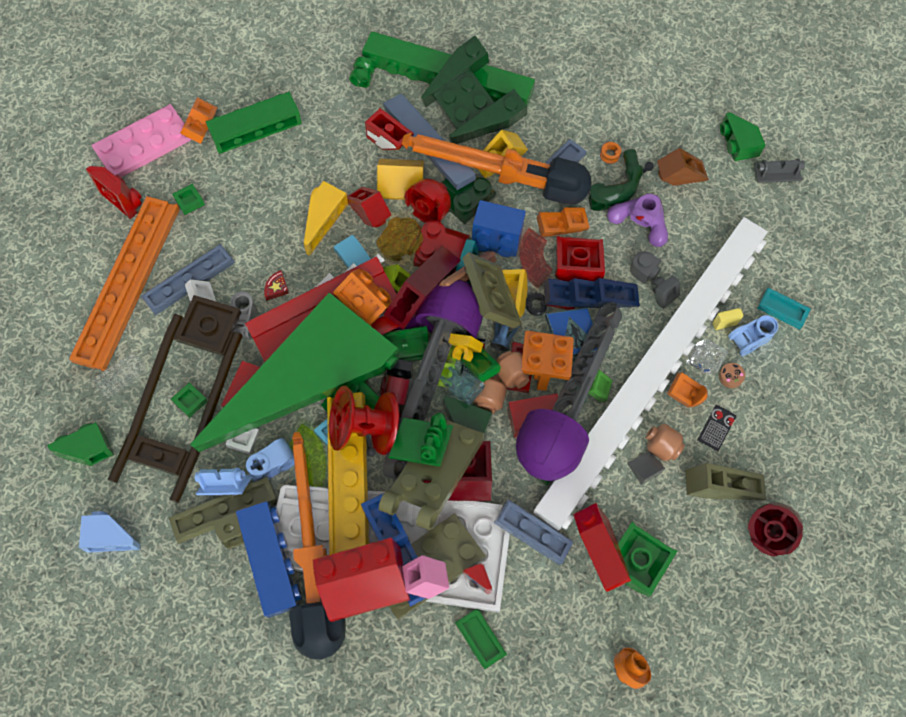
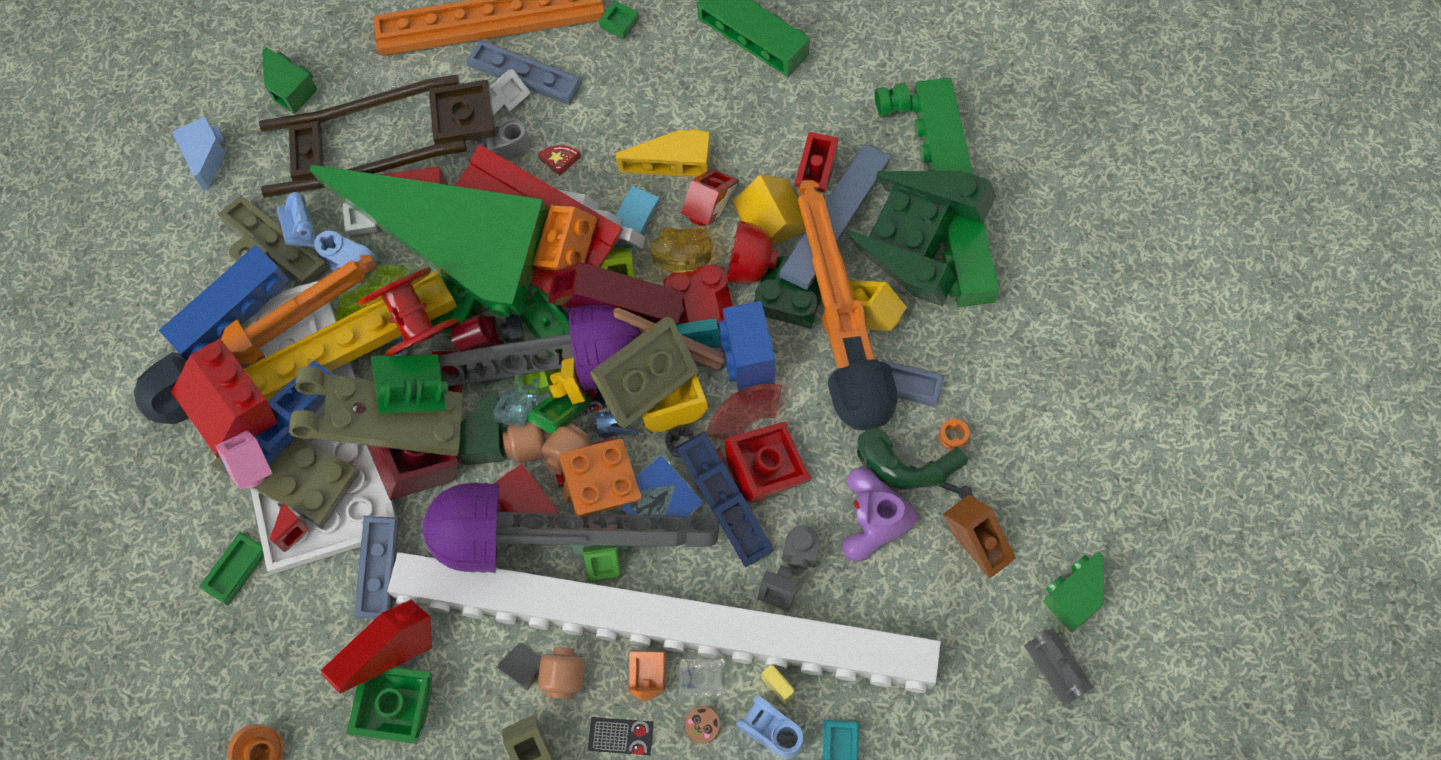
camera: 70 degrees right, 0 degrees up
(189, 400) = (380, 145): green plate -> none
(564, 222) = (815, 422): orange slope -> none

